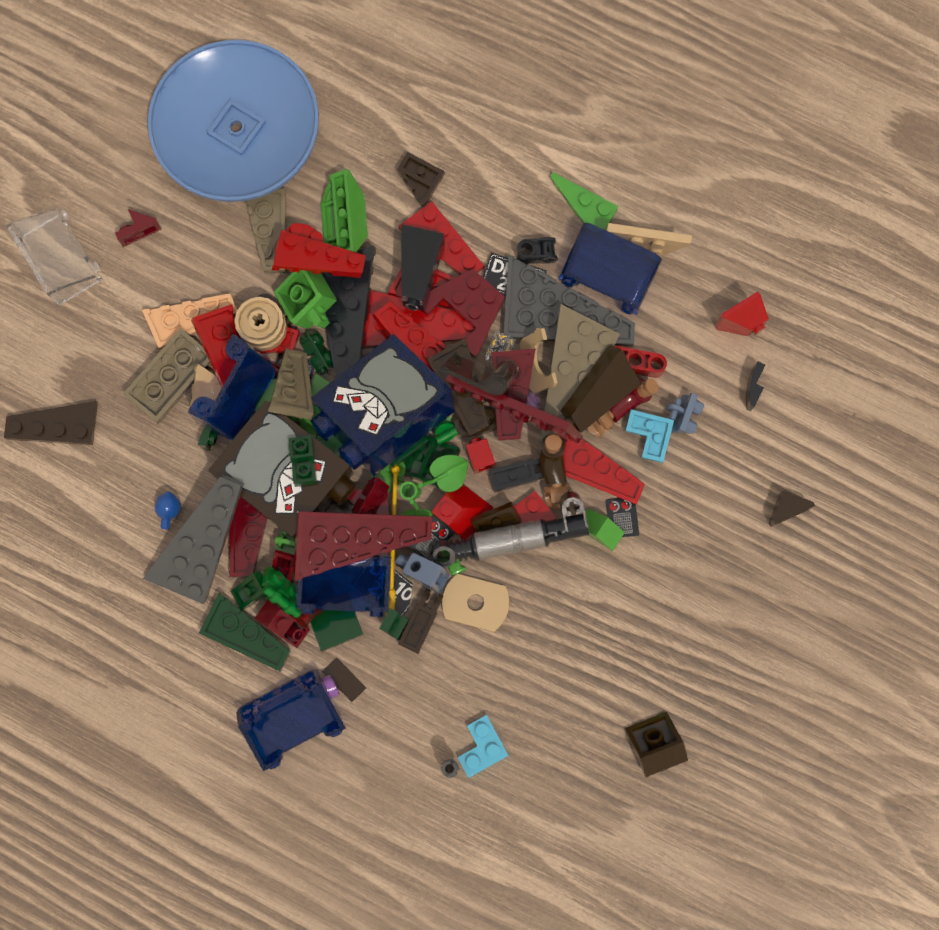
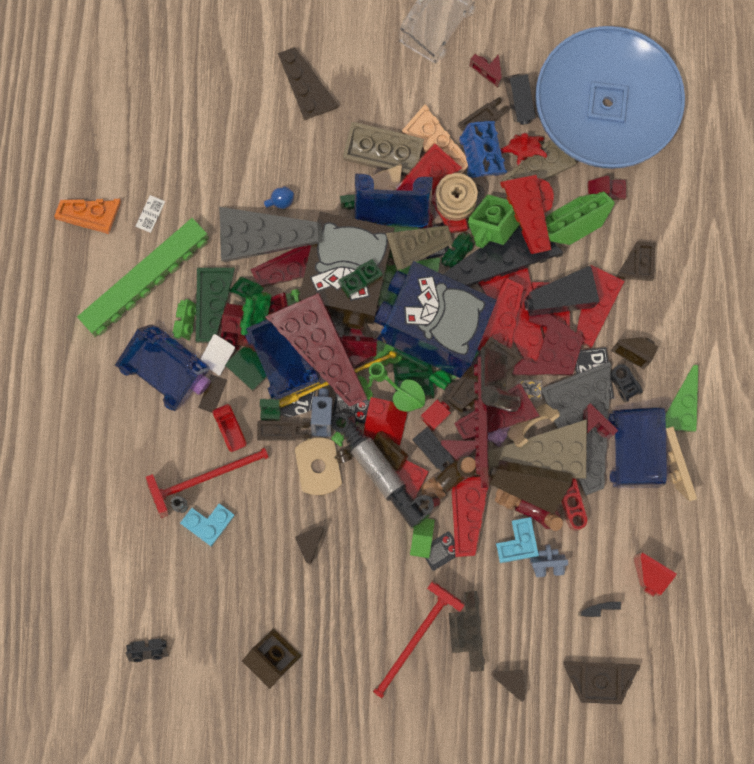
camera: 60 degrees right, 0 degrees up
(80, 722) = (88, 214): none -> orange wing
(111, 657) = (150, 213): none -> white sticker
(180, 696) = (143, 278): none -> bright green brick
(185, 210) = (520, 97): none -> black slope
(187, 260) = (483, 114): none -> dark brown hinge
(221, 276) = (476, 152): none -> blue piece
(241, 231) = (524, 147): none -> red piece
(257, 676) = (186, 311): none -> bright green hinge
(304, 654) = (217, 354): none -> white sticker
(330, 164) = (613, 188): none -> dark red slope
(391, 677) = (229, 428): none -> red animal
(429, 786) = (159, 494): none -> red tile
(477, 571) = (343, 456): none -> dark brown plate
(511, 222) = (636, 350): none -> dark brown slope
(527, 446) = (459, 448): none -> dark red slope
(553, 649) = (309, 542): none -> dark brown slope
(566, 294) = (596, 419): none -> dark red slope
(586, 884) = (138, 652): none -> black hinge
(676, 536) = (444, 598): none -> red tile
(718, 528) = (466, 631): none -> clear smoke bracket
(826, 419) = (600, 681): none -> dark brown wing

